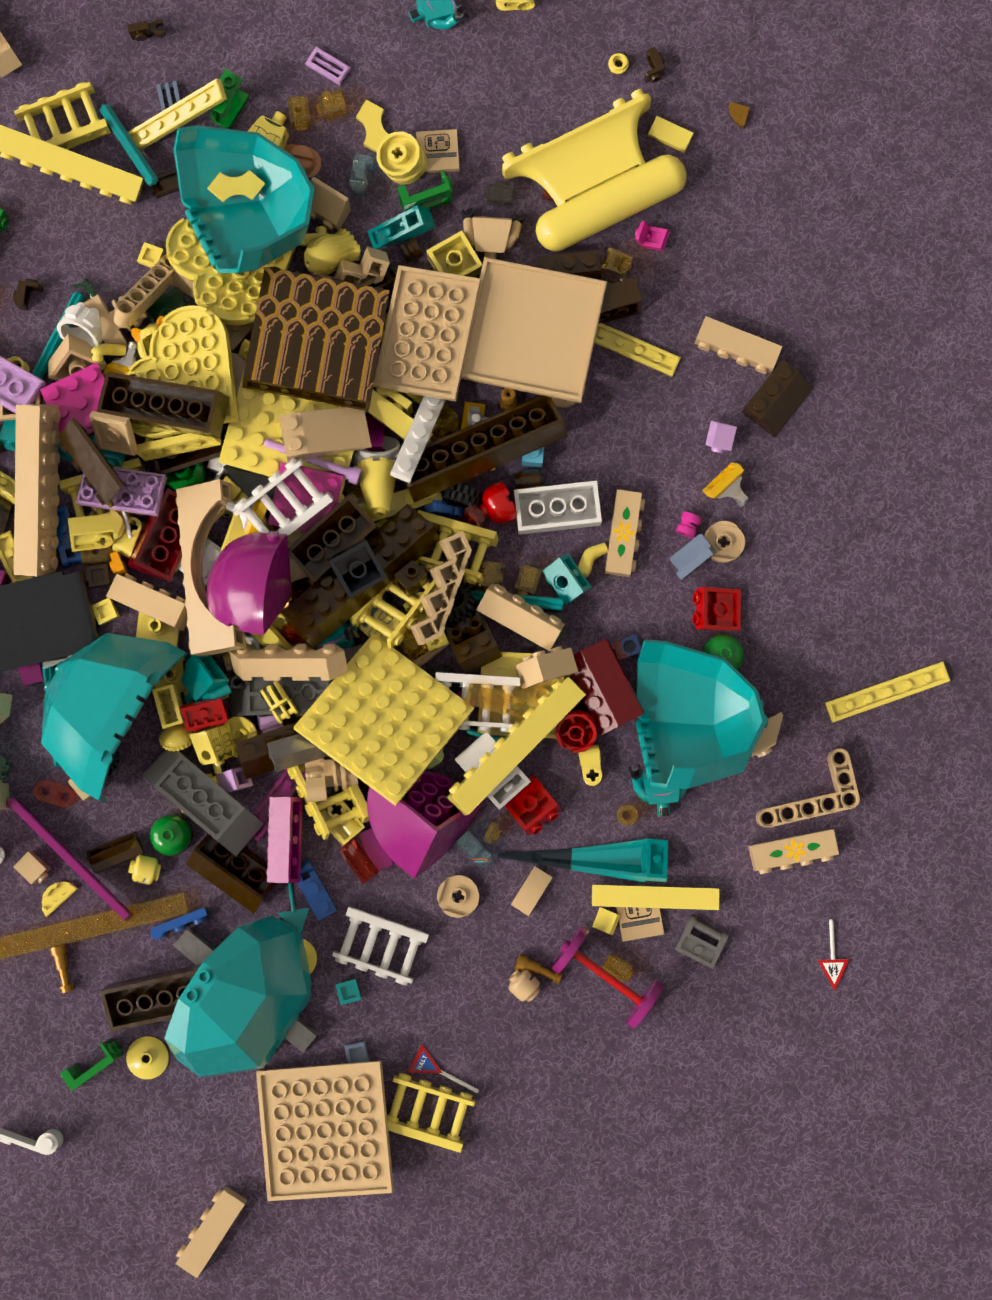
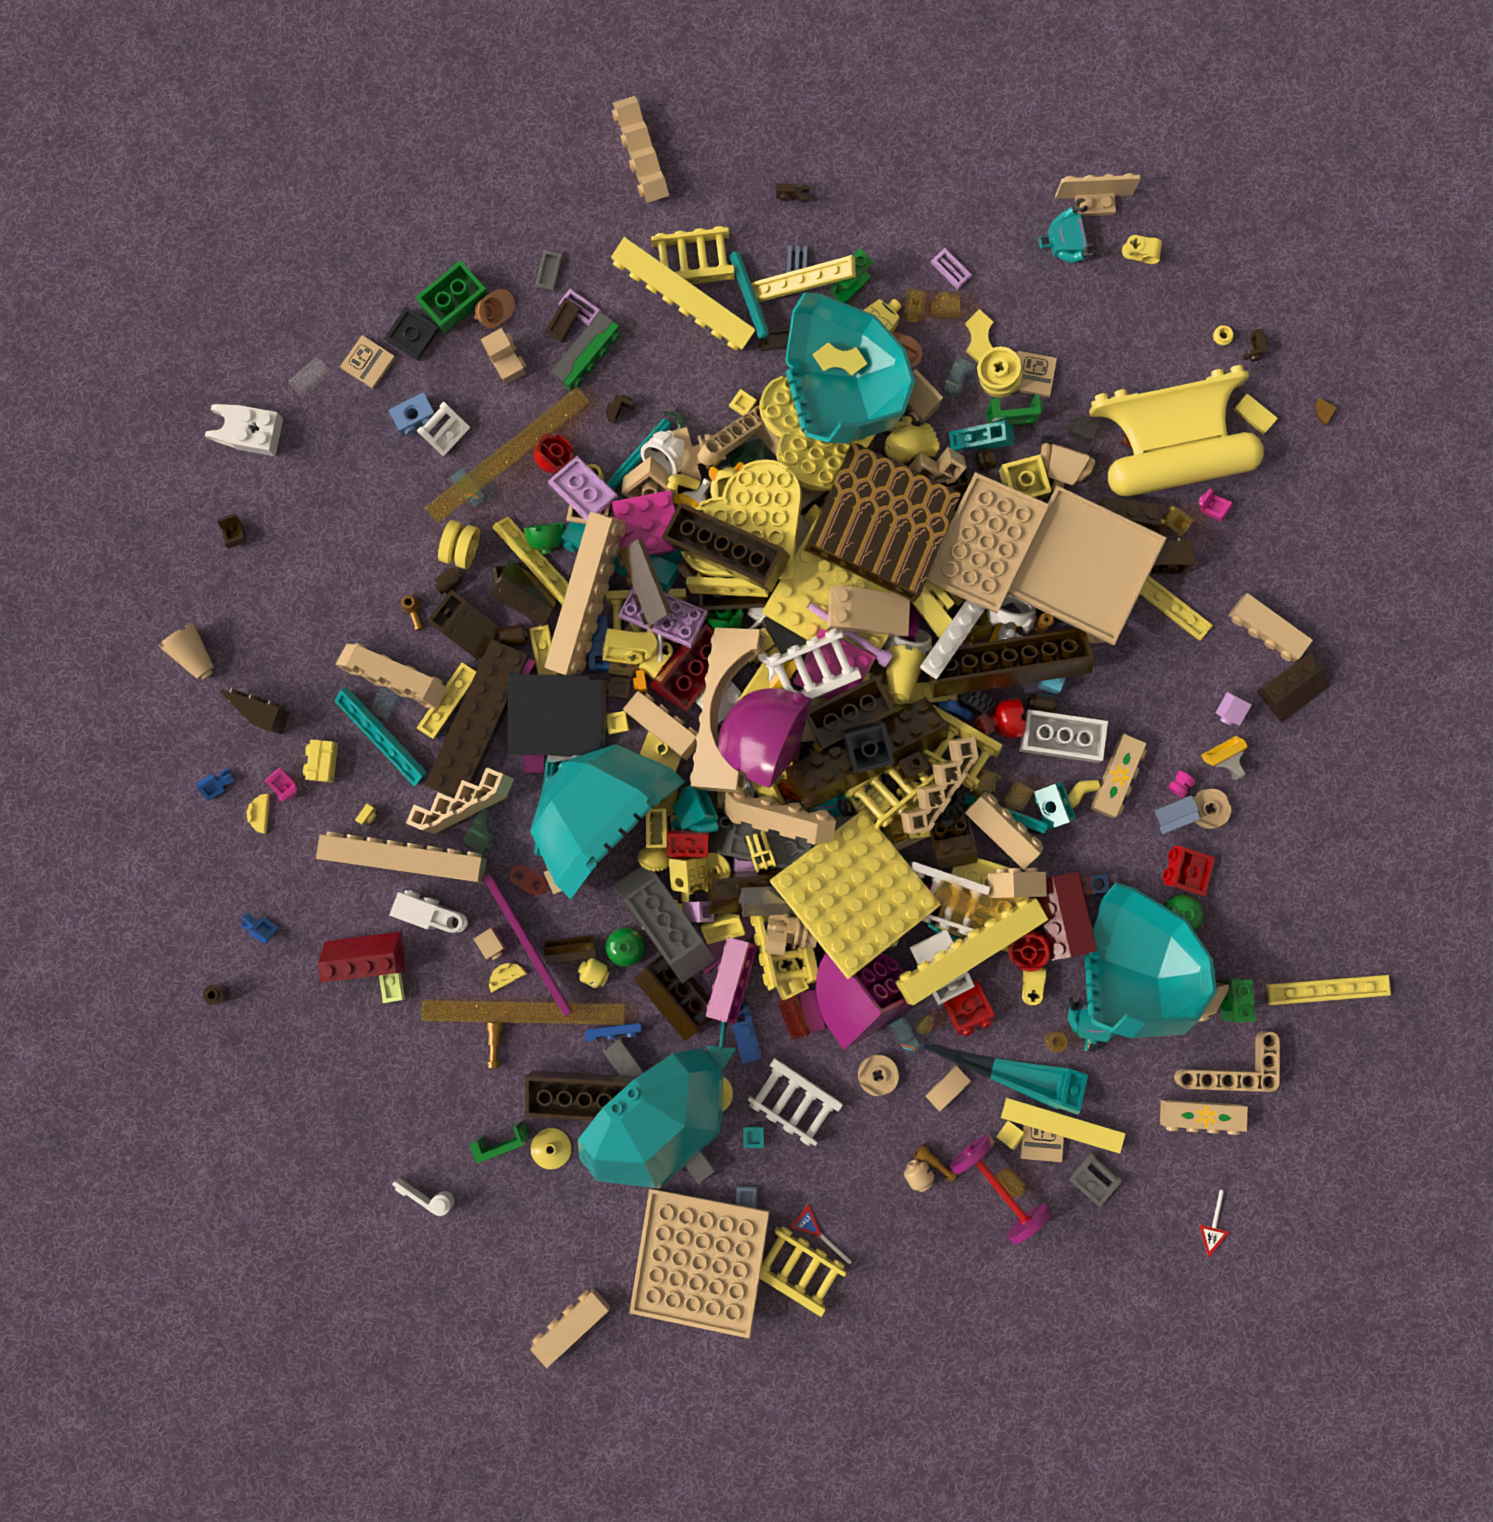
camera: 15 degrees right, 0 degrees up
(113, 433) = (672, 561): tan tile -> none
(263, 788) = (724, 926): none -> light yellow slope
(490, 400) = (1025, 619): none -> white piece
(798, 724) = (1239, 1002): none -> green panel

